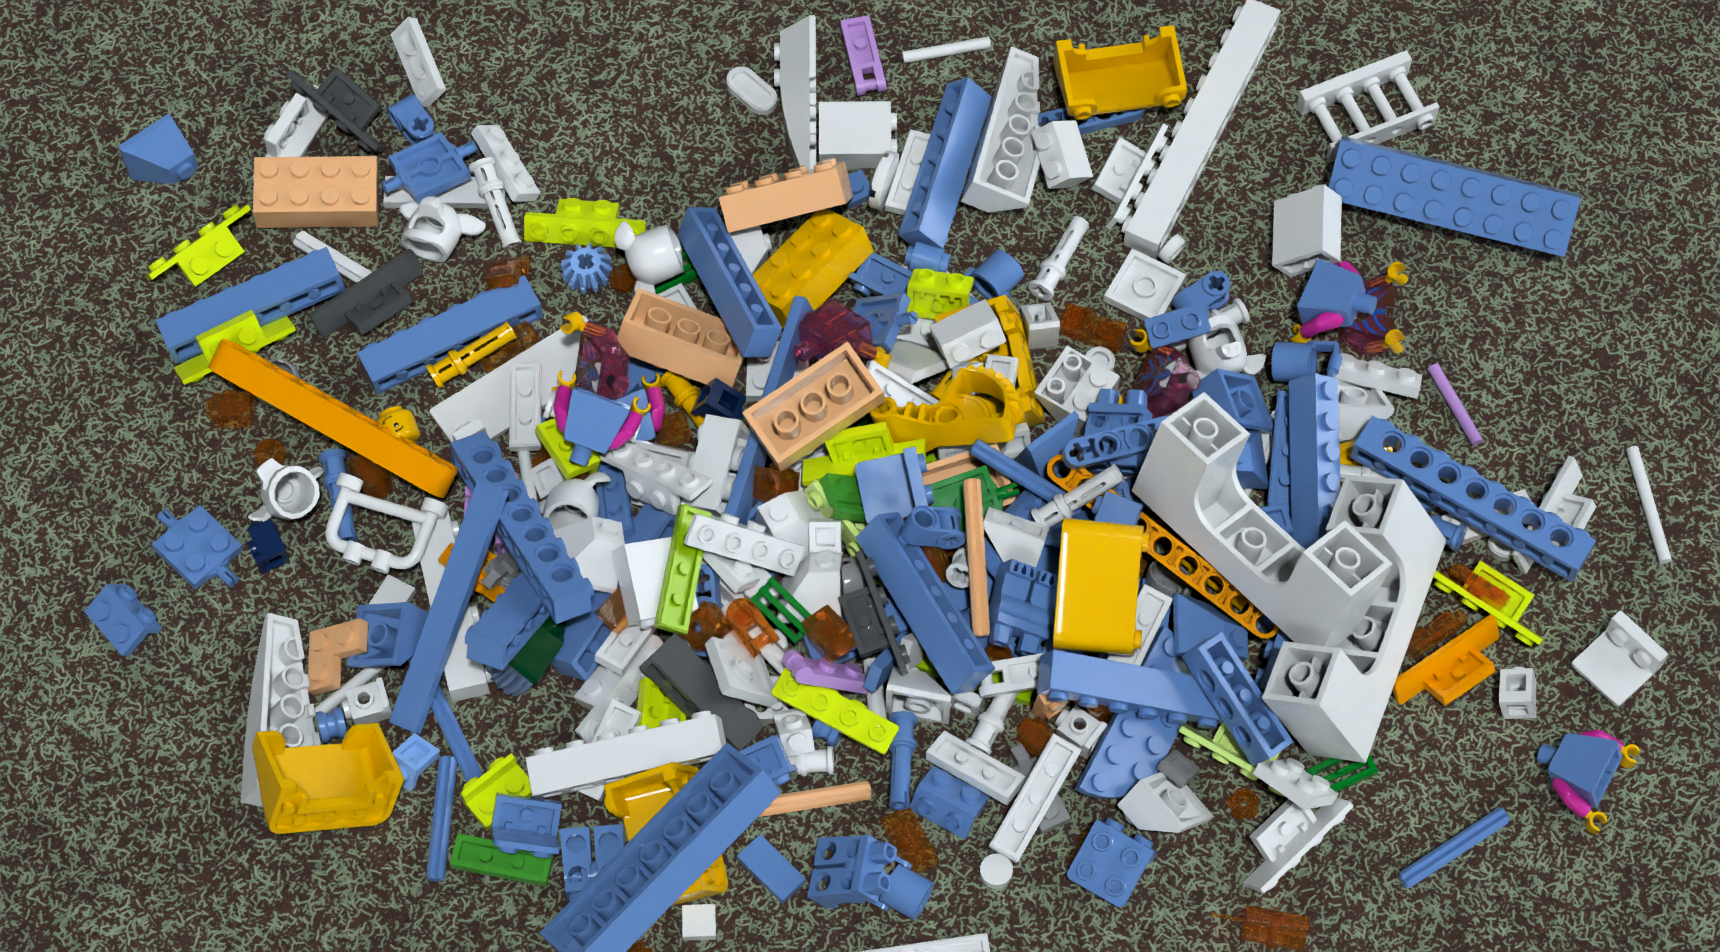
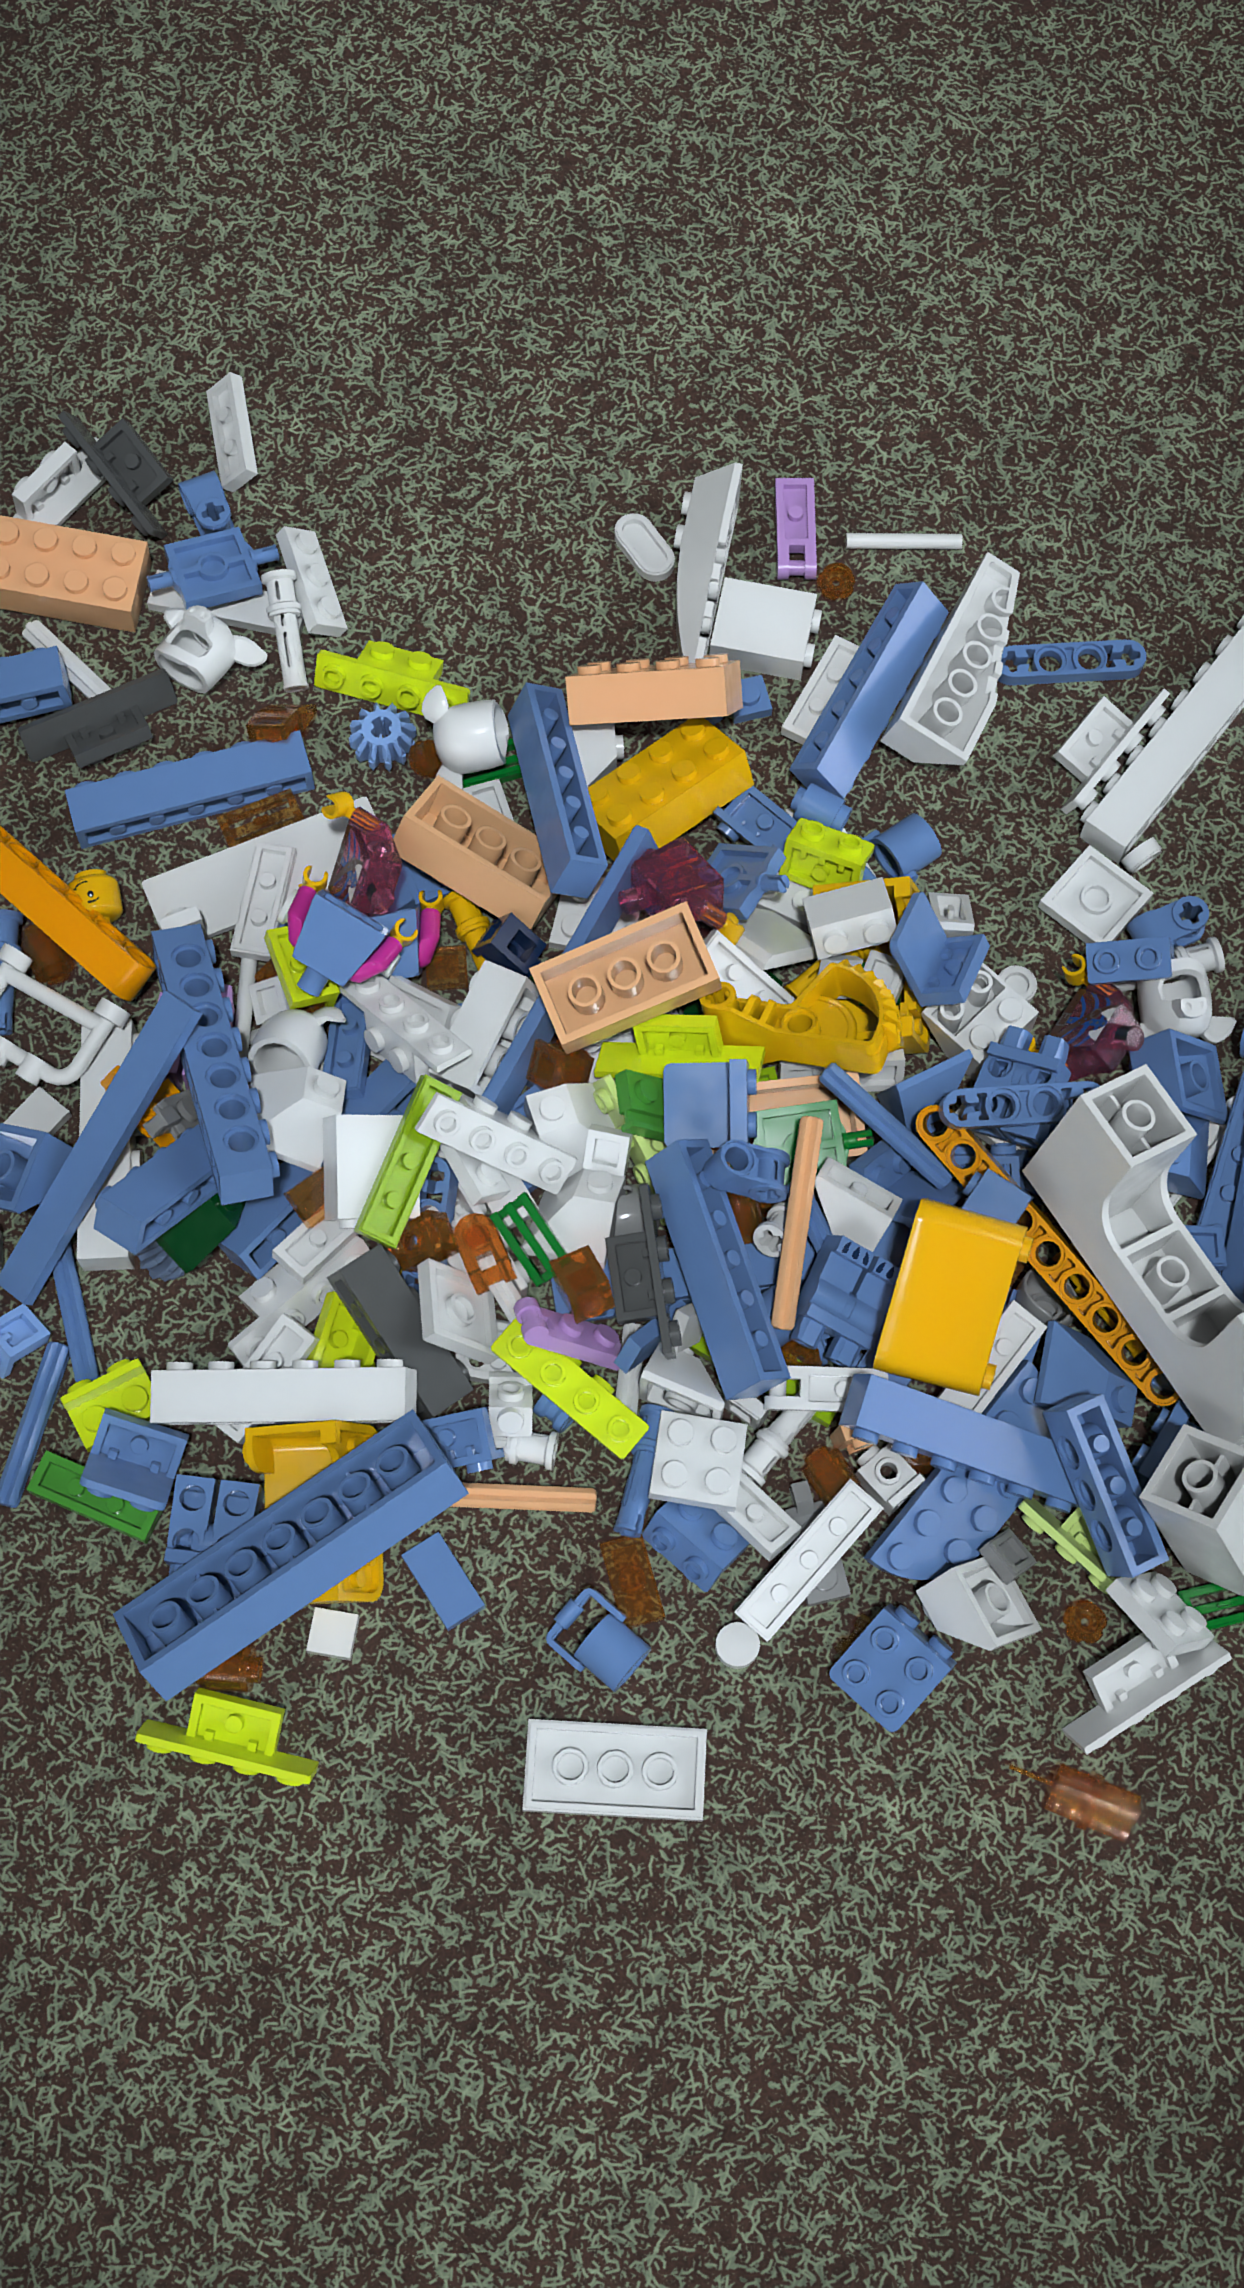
camera: 10 degrees right, 5 degrees up
(454, 359) = (188, 822): yellow pin -> none
(853, 872) = (545, 1612): medium blue hips -> none
(883, 179) = (786, 693): white tile -> none
(902, 82) = (840, 573): none -> clear orange plate
(939, 744) = (697, 1461): none -> white plate
(1036, 356) = (935, 966): none -> medium blue bracket
(1053, 269) = (982, 851): white pin -> none
(1062, 154) = (1024, 704): white brick -> none
(1065, 505) = (929, 1174): white pin -> none
(1088, 328) = (1016, 941): clear orange slope -> none
(1120, 75) = (1122, 616): yellow windscreen -> none

